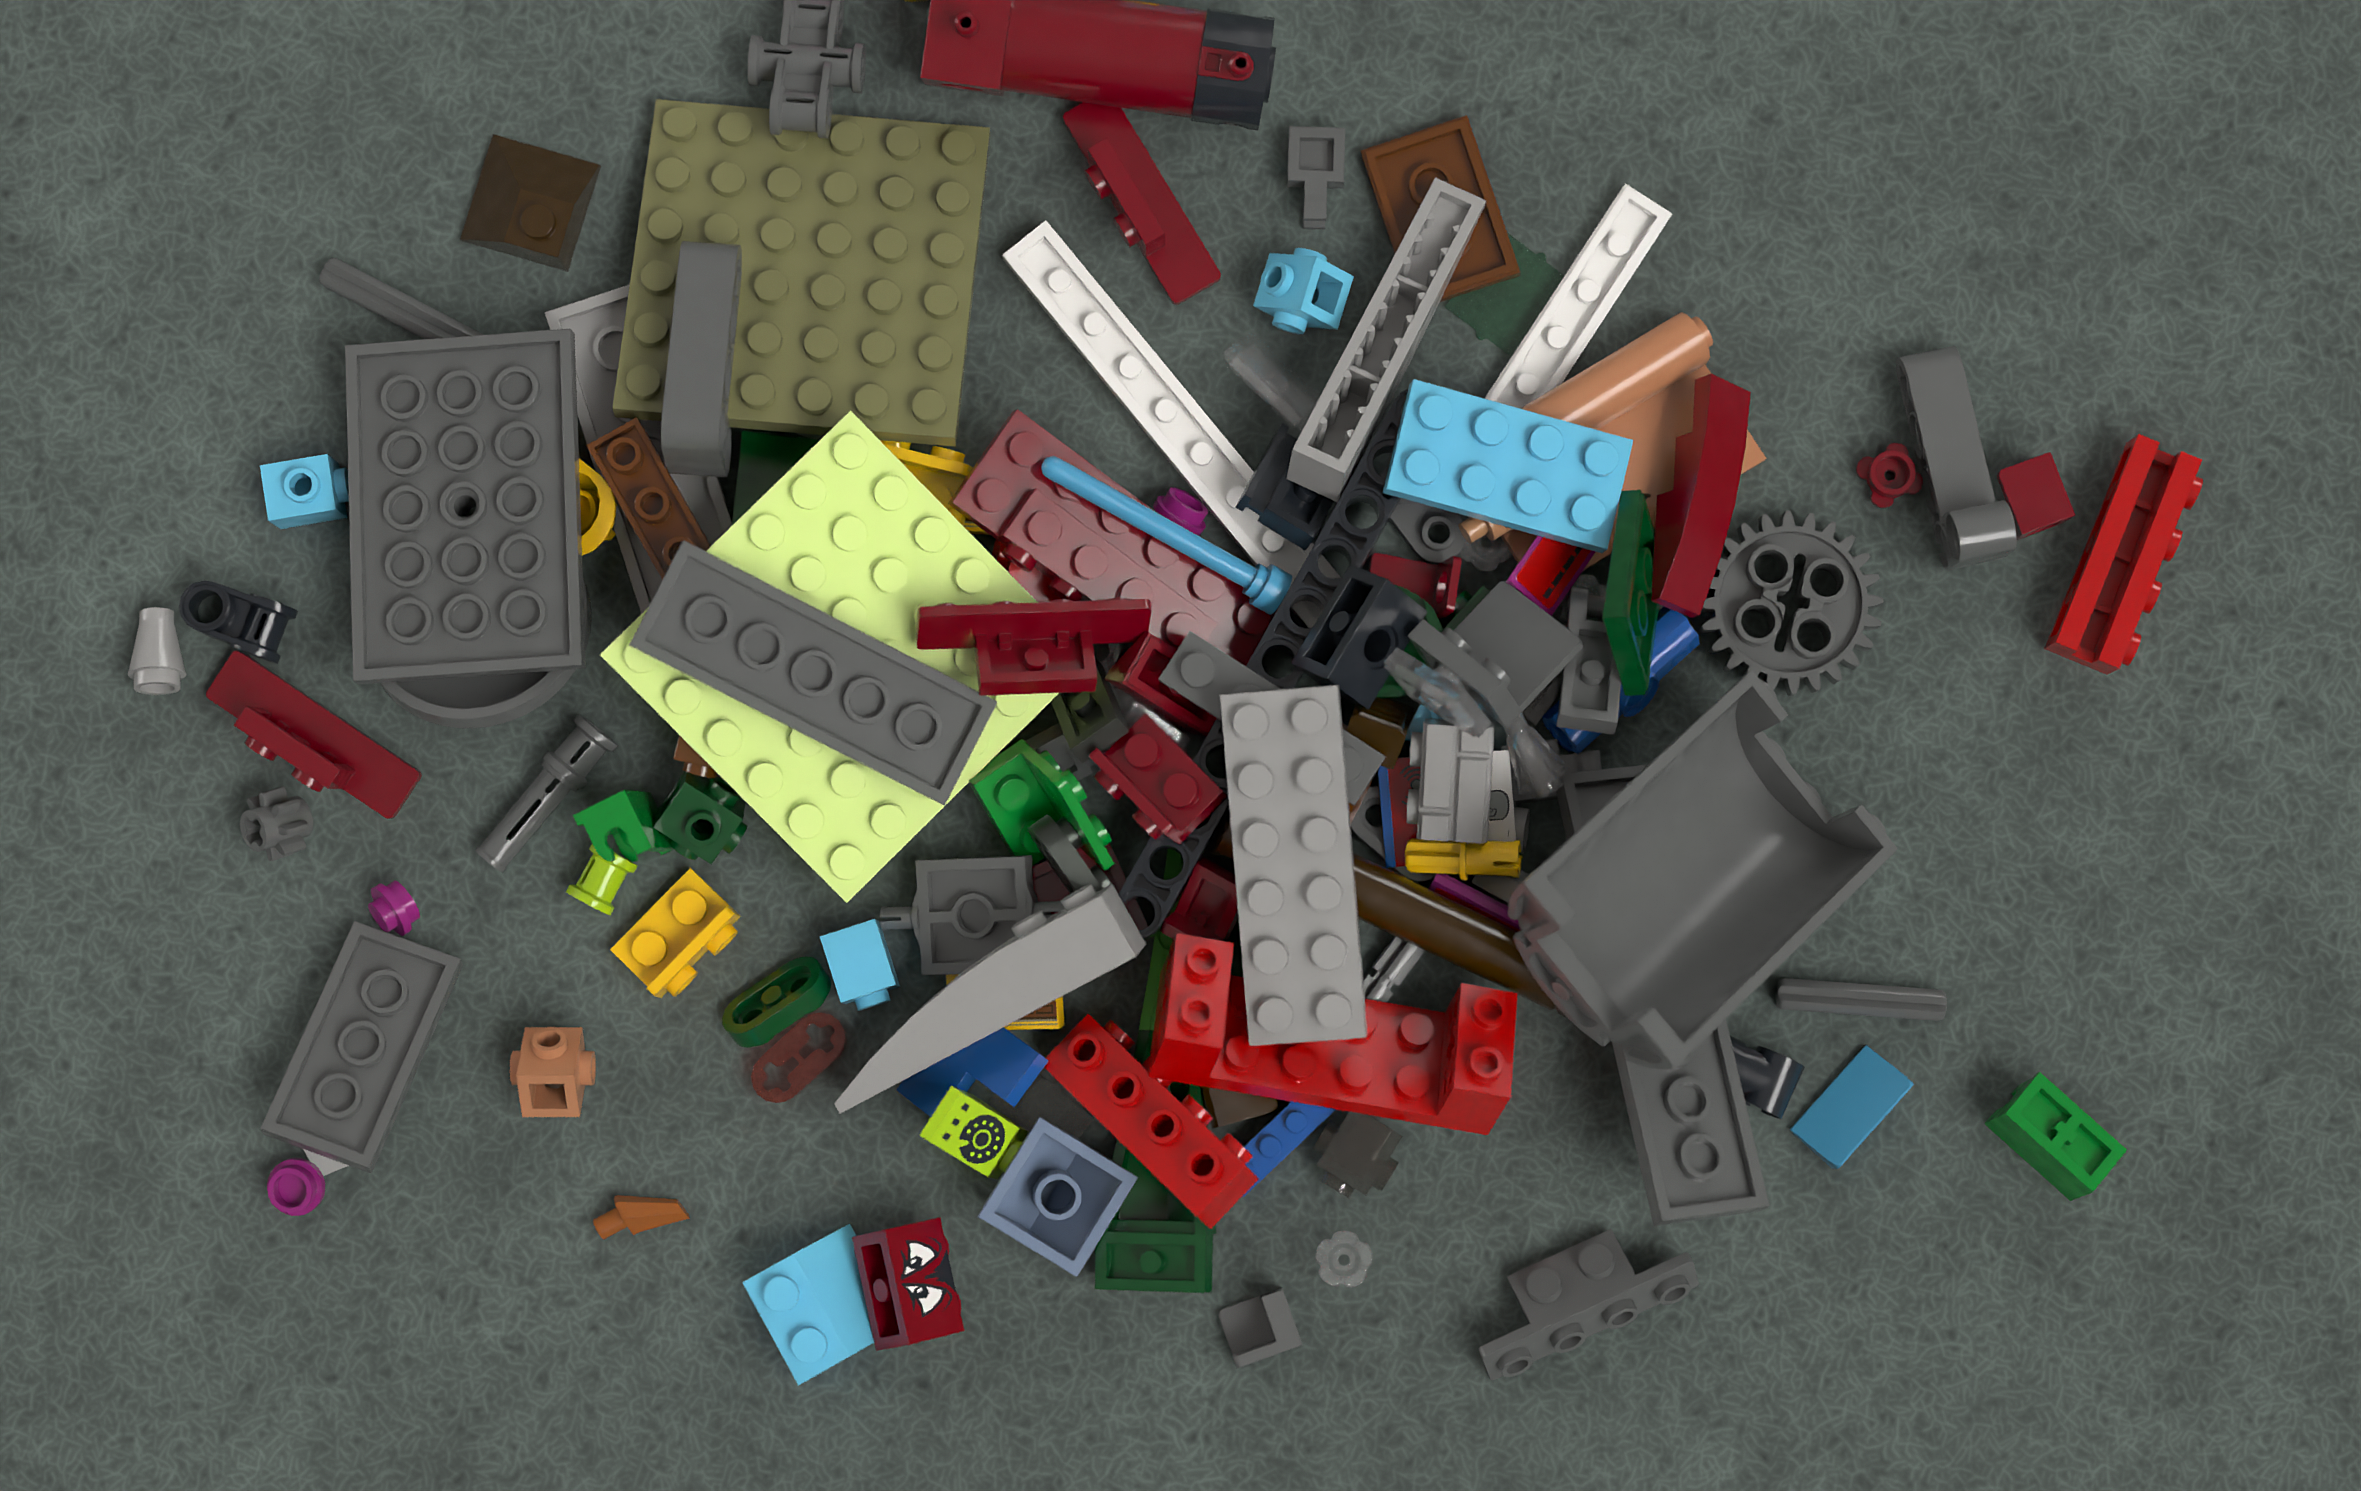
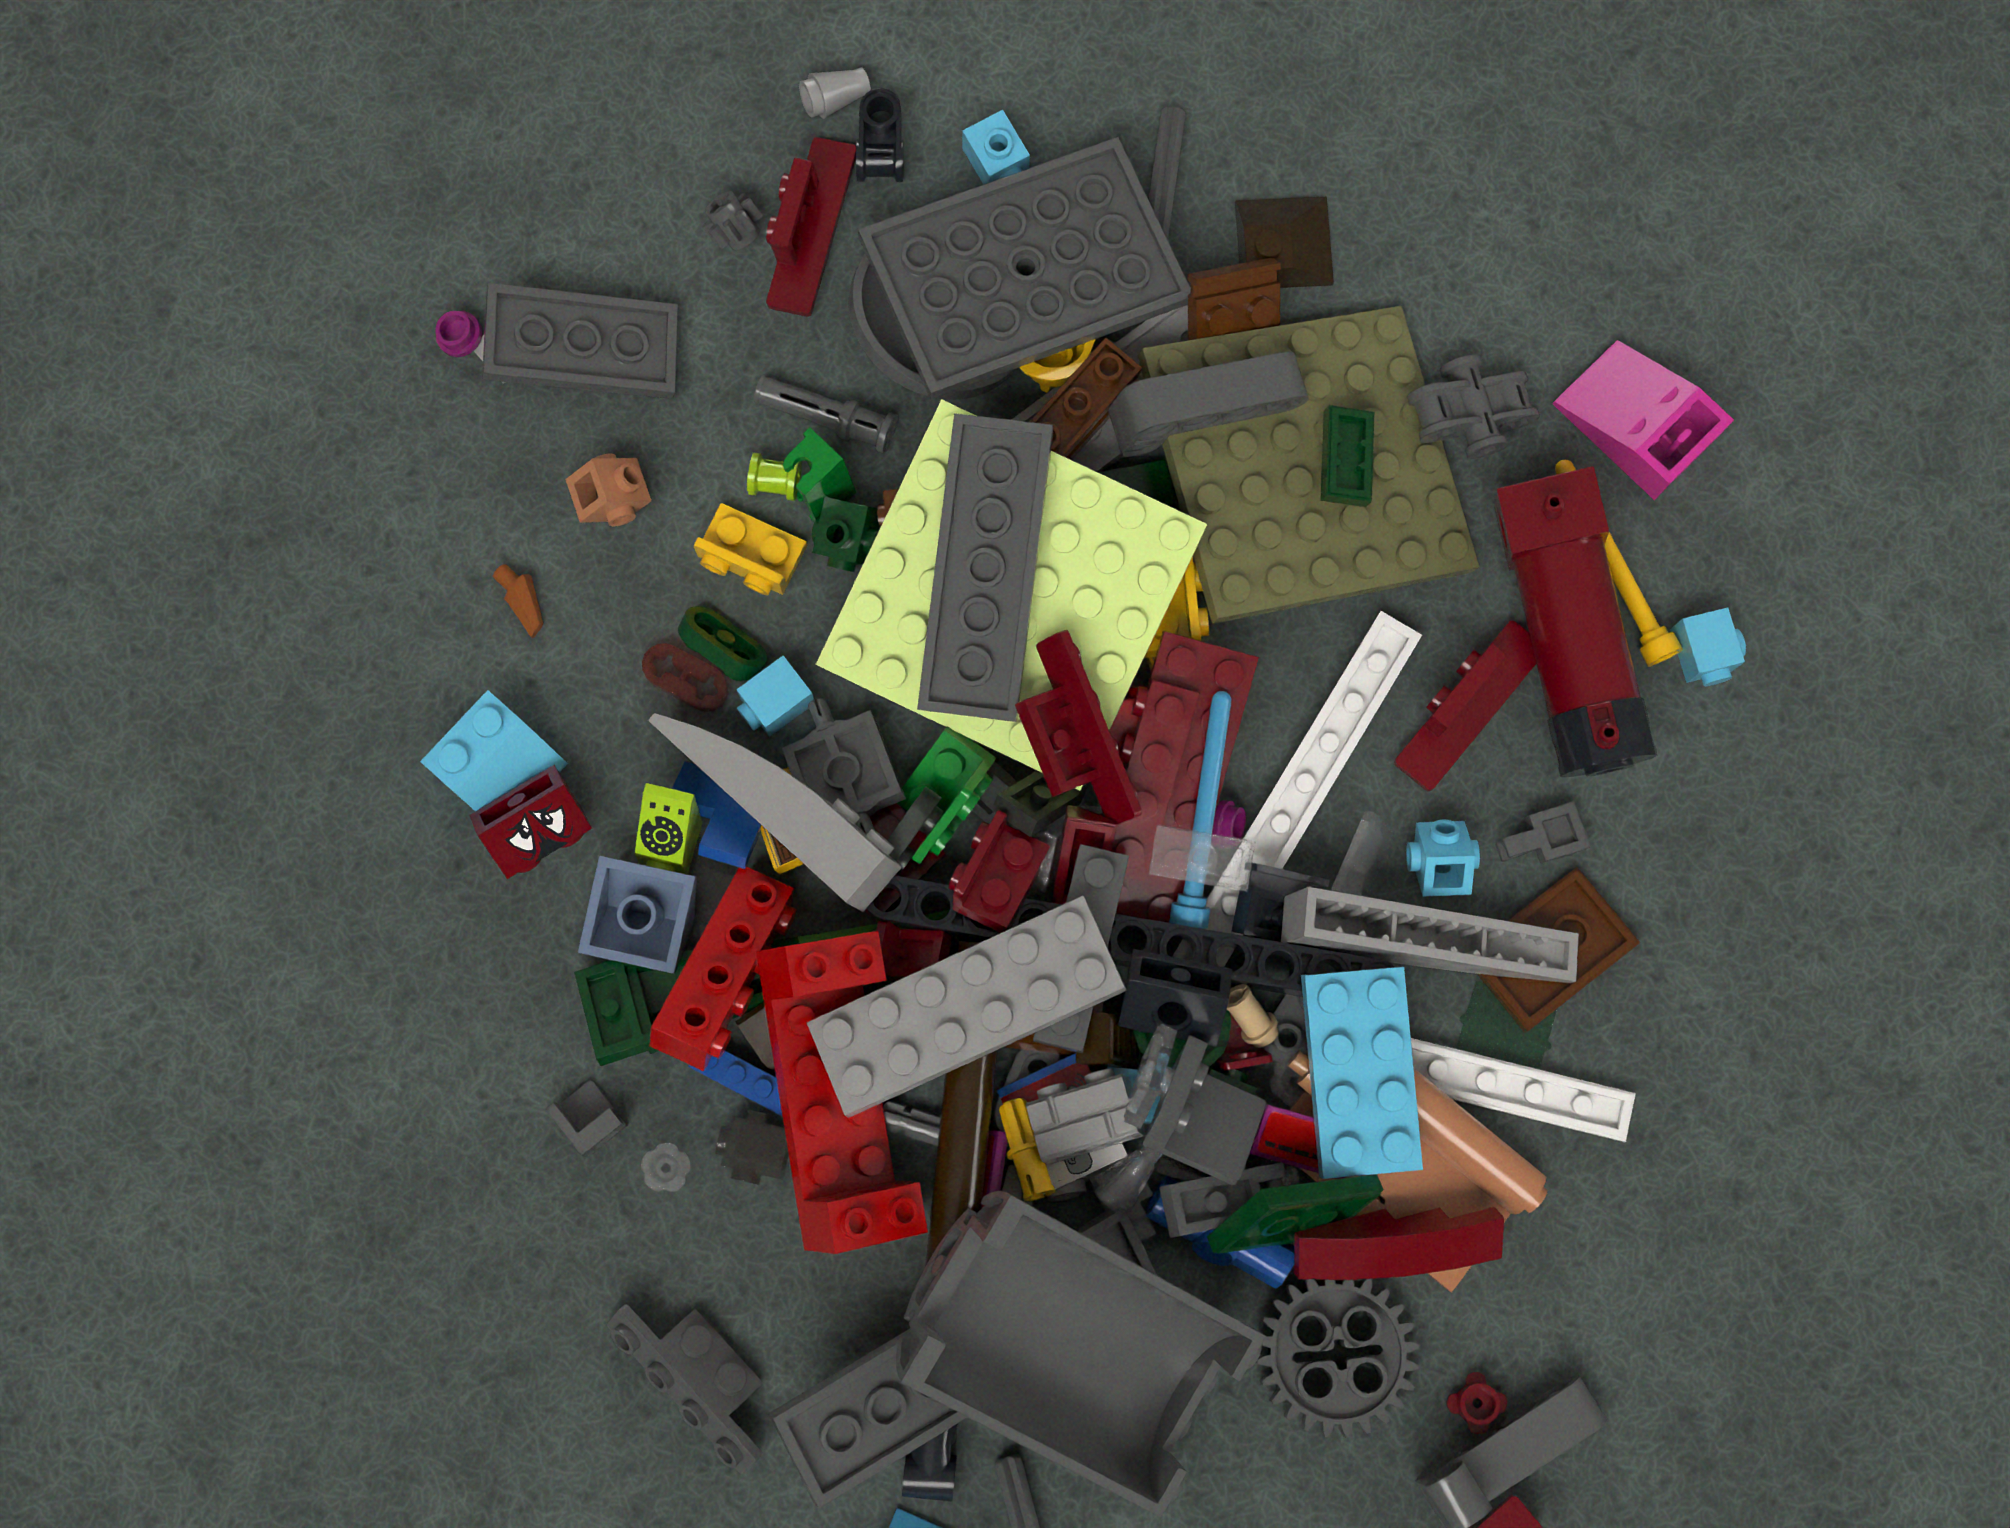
camera: 65 degrees right, 5 degrees down
(393, 908) = (697, 329): magenta plate -> none
(589, 284) = (1234, 299): none -> reddish brown plate
(819, 226) = (1347, 456): none -> dark green plate
(1216, 552) = (1201, 857): none -> clear plate
(1413, 560) = (1256, 1024): none -> tan pin

